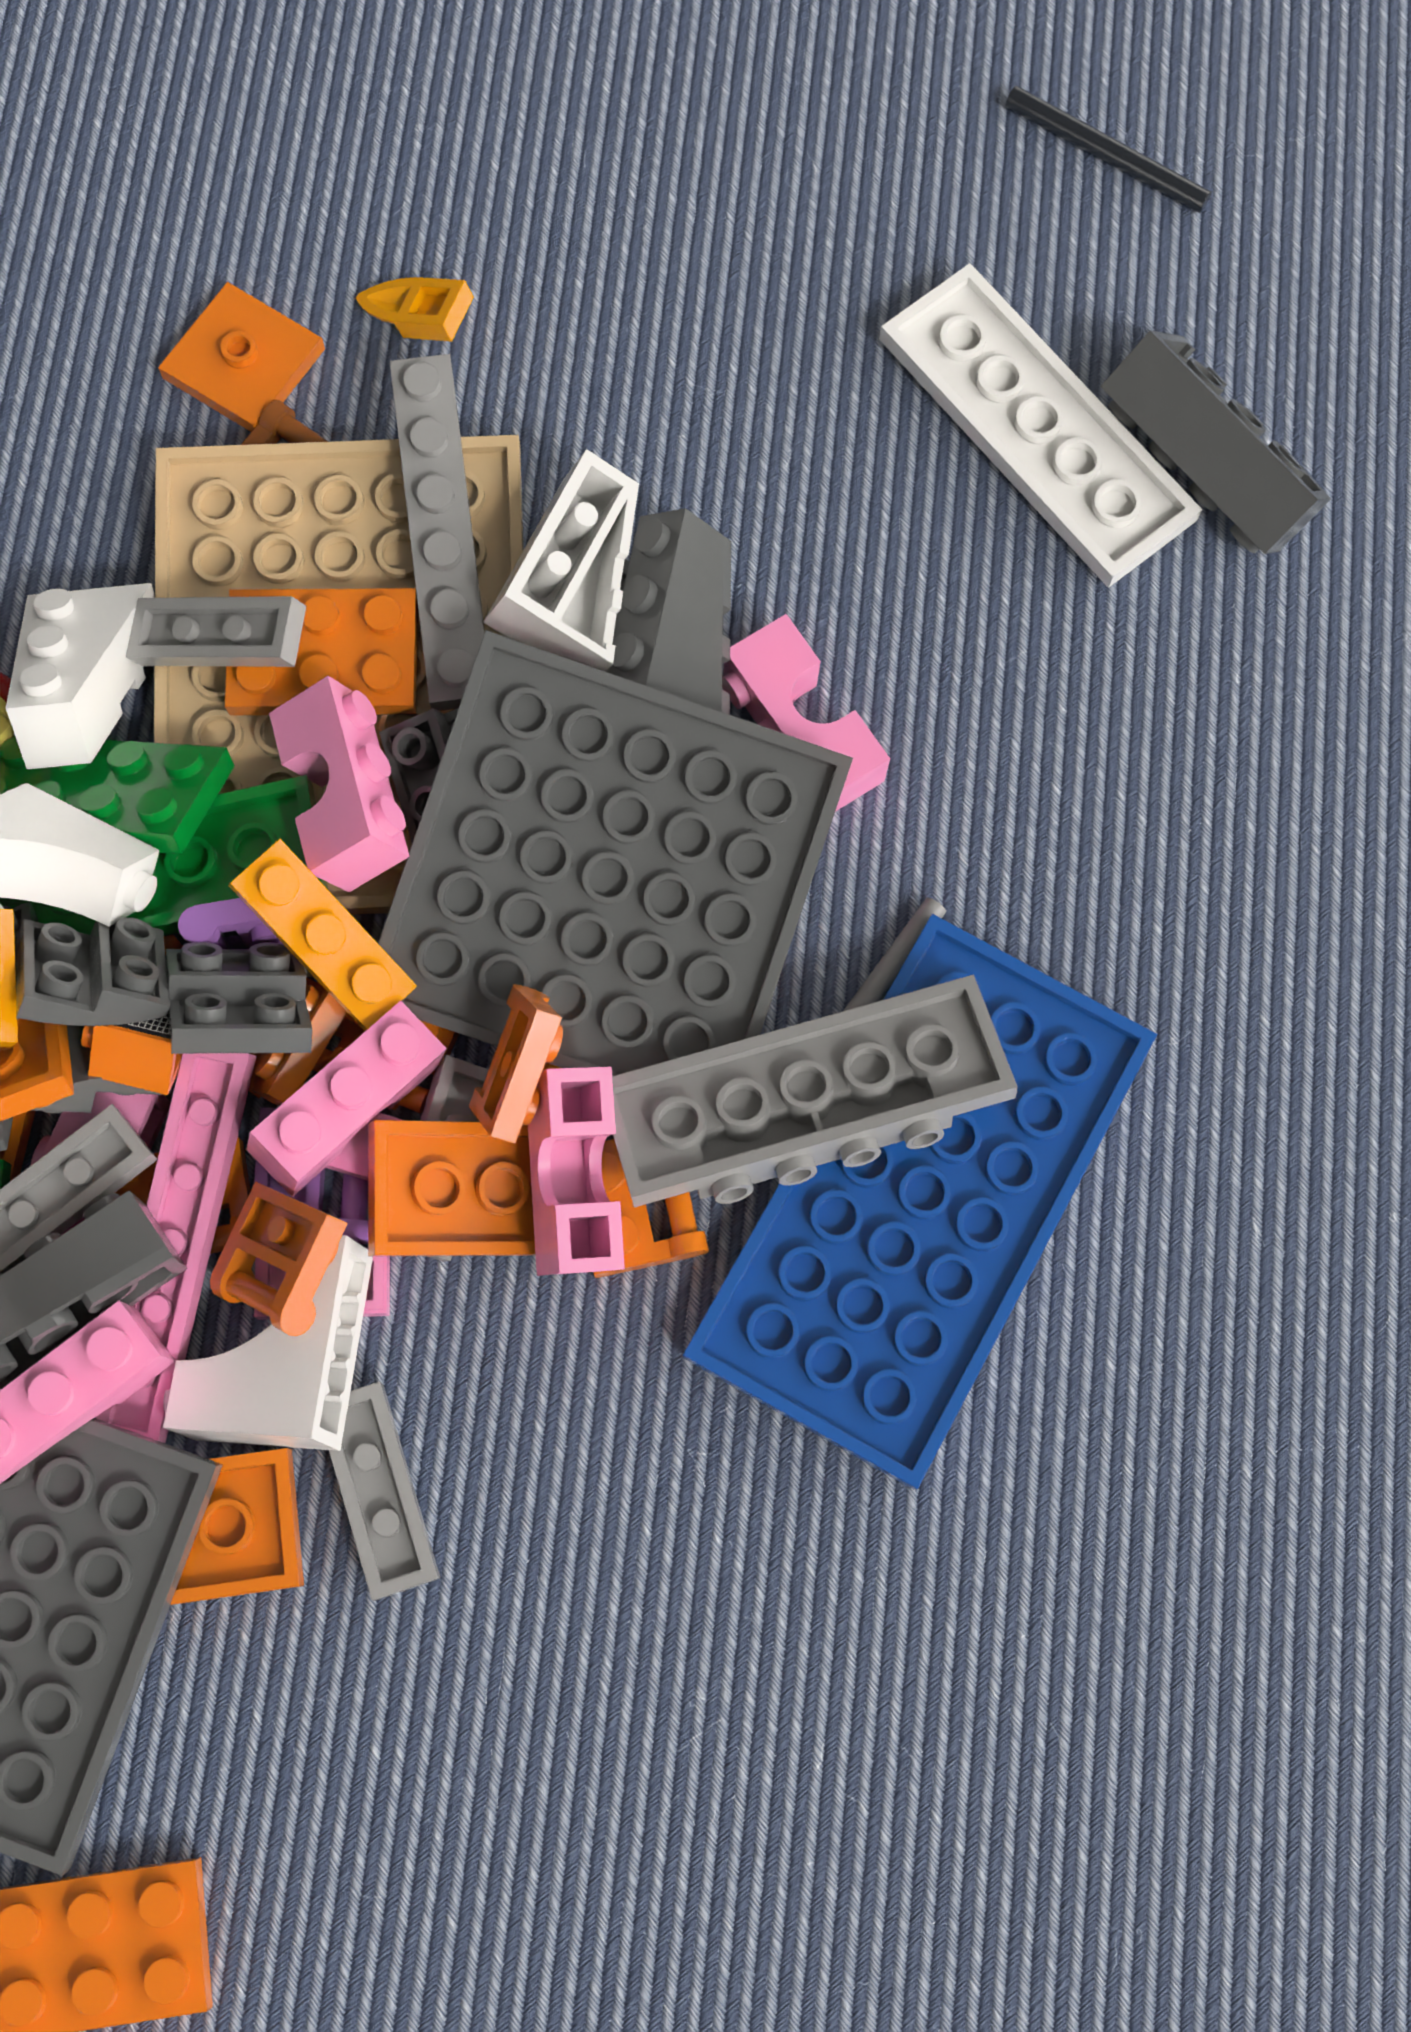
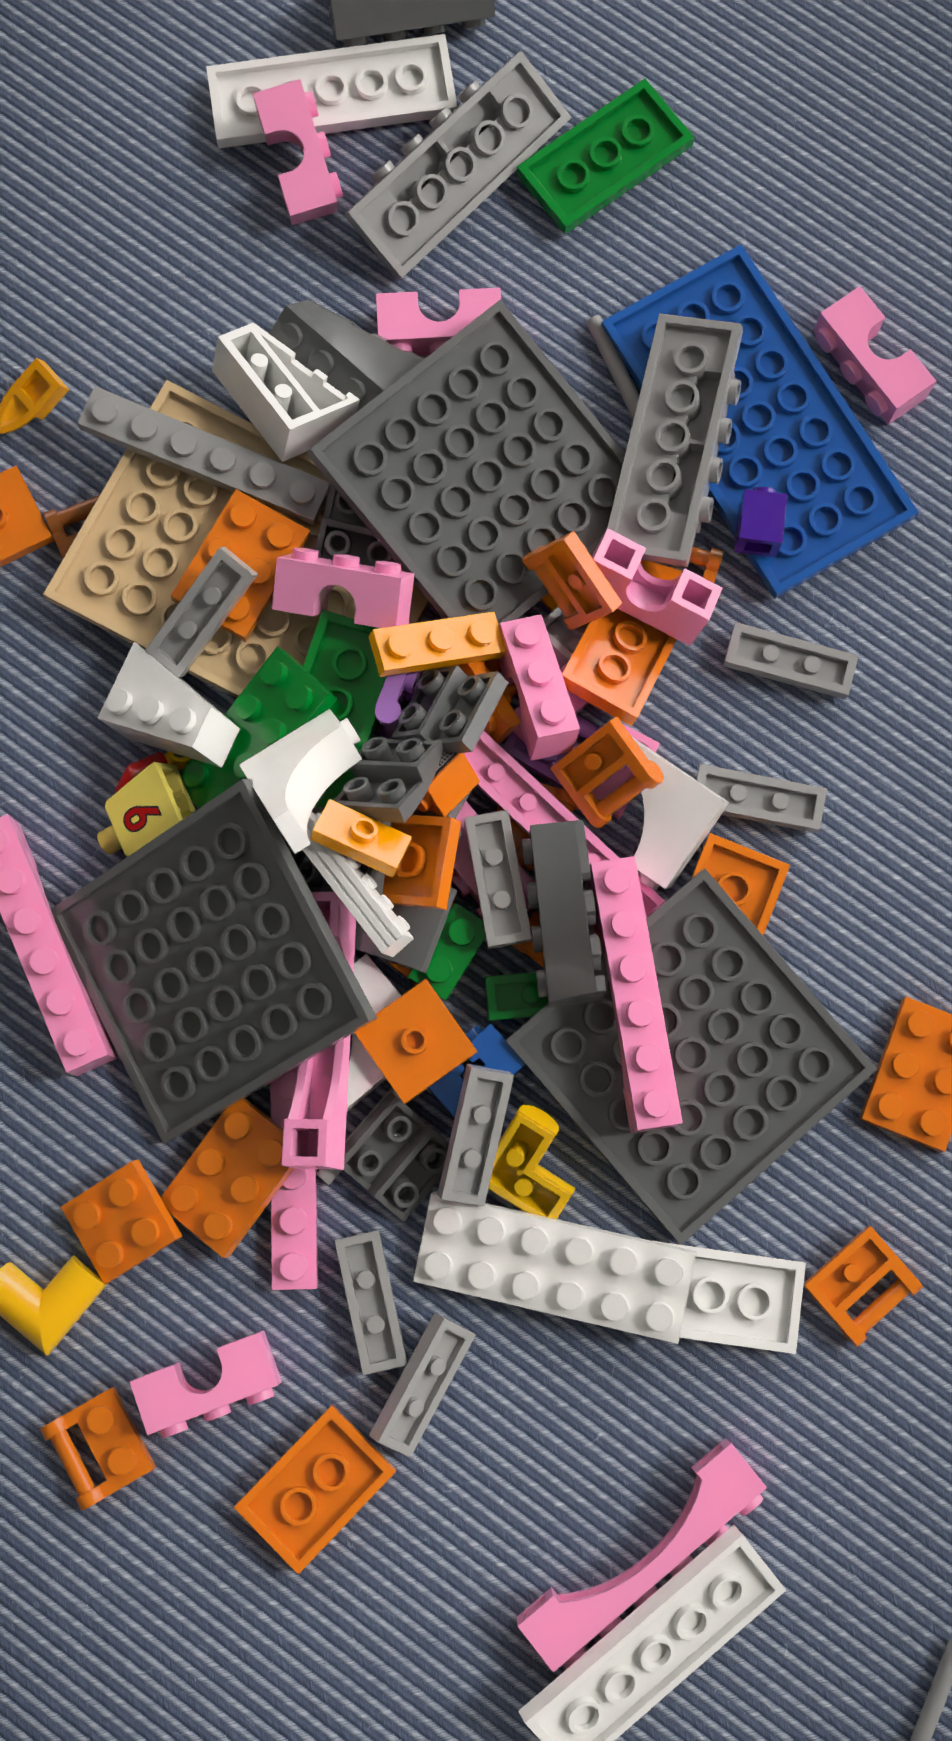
camera: 60 degrees left, 5 degrees up
(601, 1427) = (790, 660): none -> light grey plate
(762, 1271) = (760, 522): none -> dark purple brick
(890, 464) = (287, 117): none -> bright pink arch
(1033, 618) = (456, 164): none -> light grey plate
(1083, 1350) = (888, 384): none -> bright pink arch
(1171, 796) = (605, 156): none -> green plate

